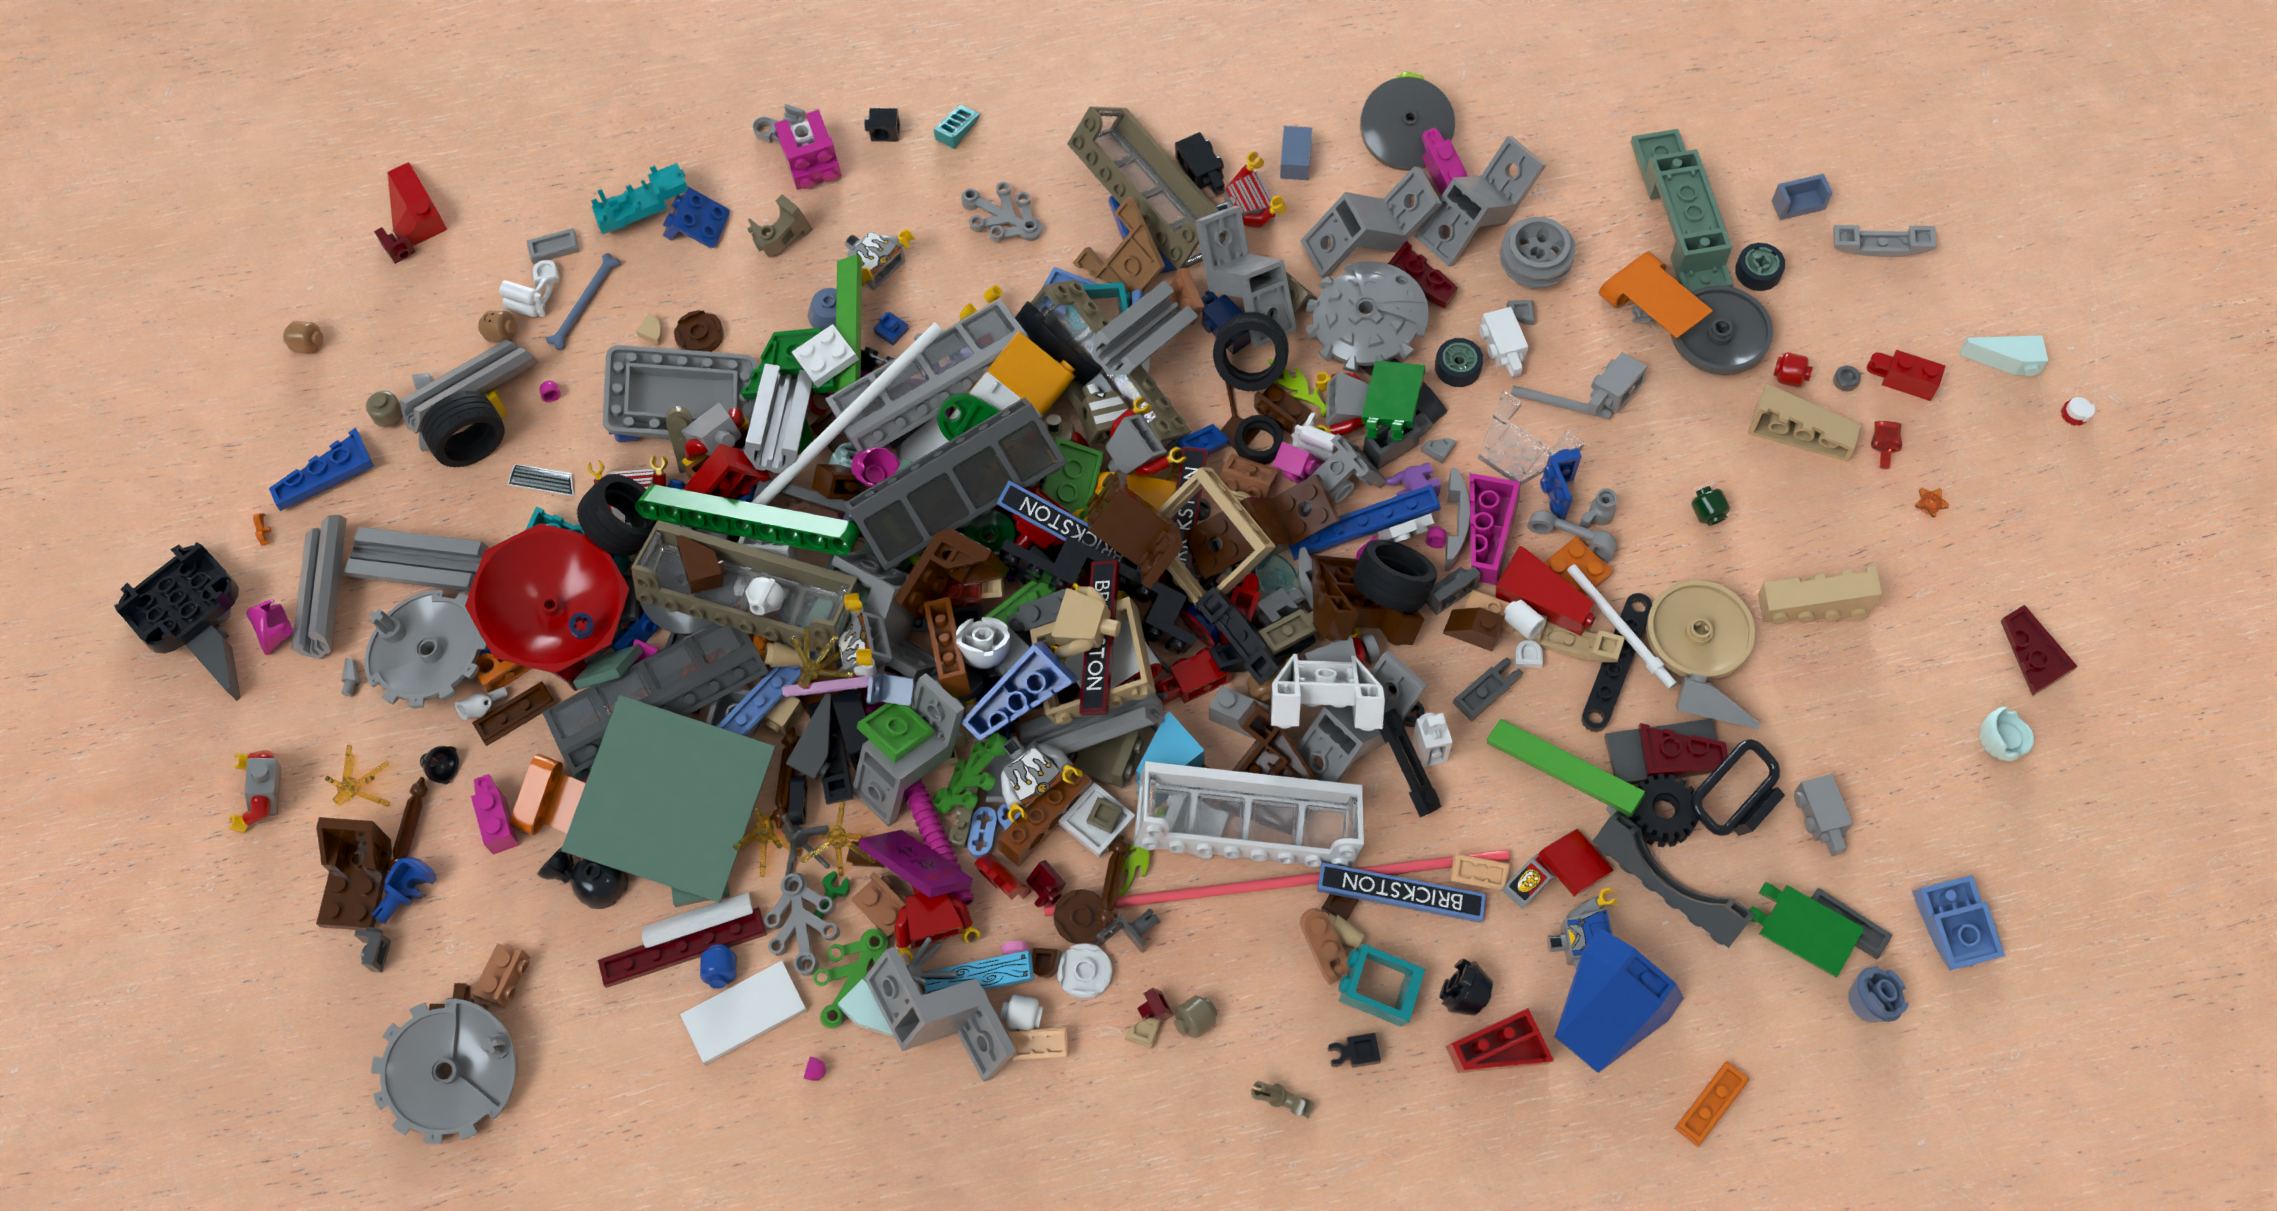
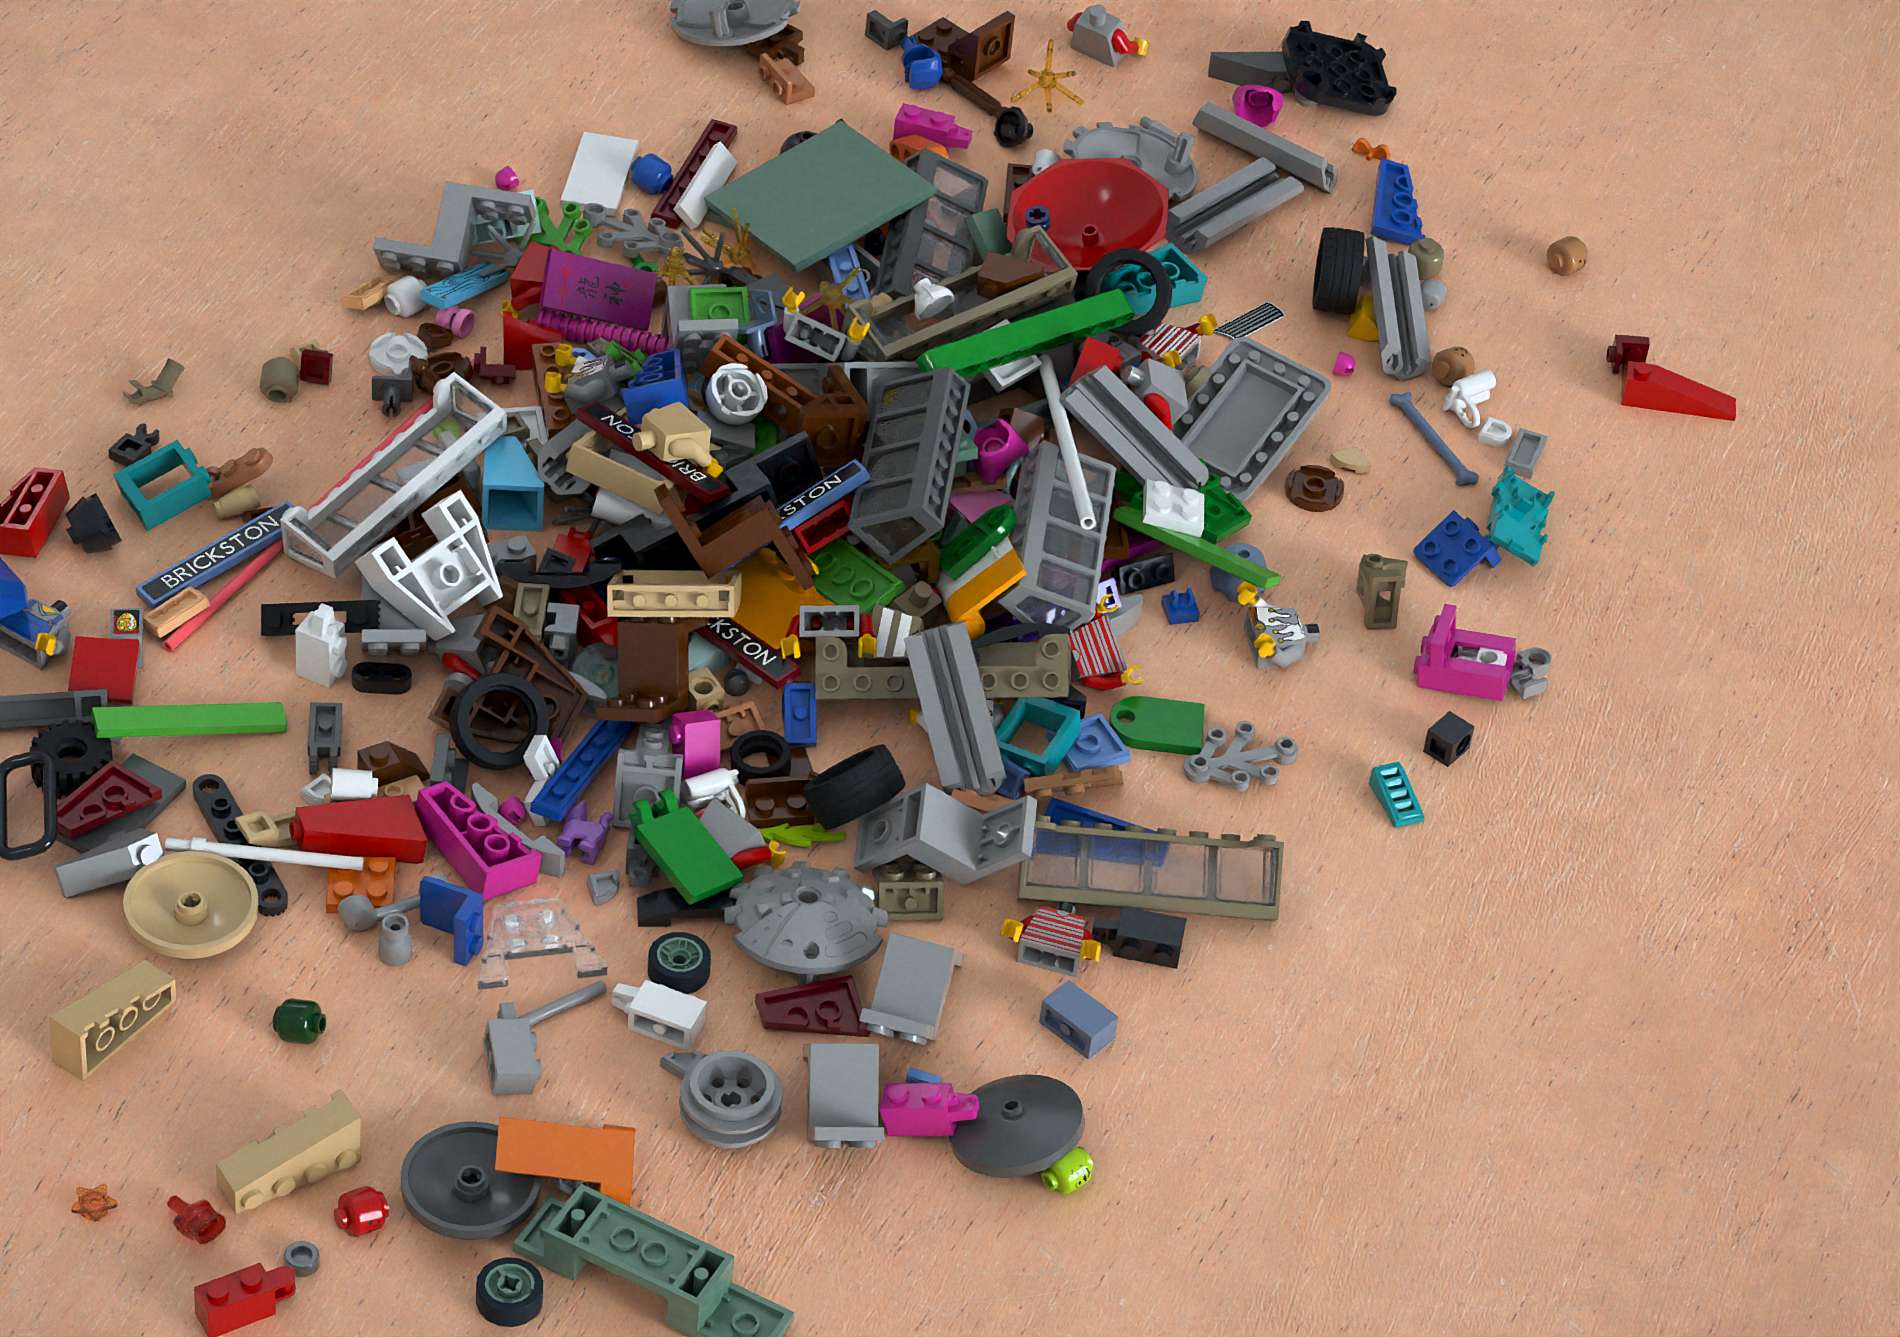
camera: 120 degrees right, 20 degrees down
(1010, 270) = (1159, 724): none -> green tile

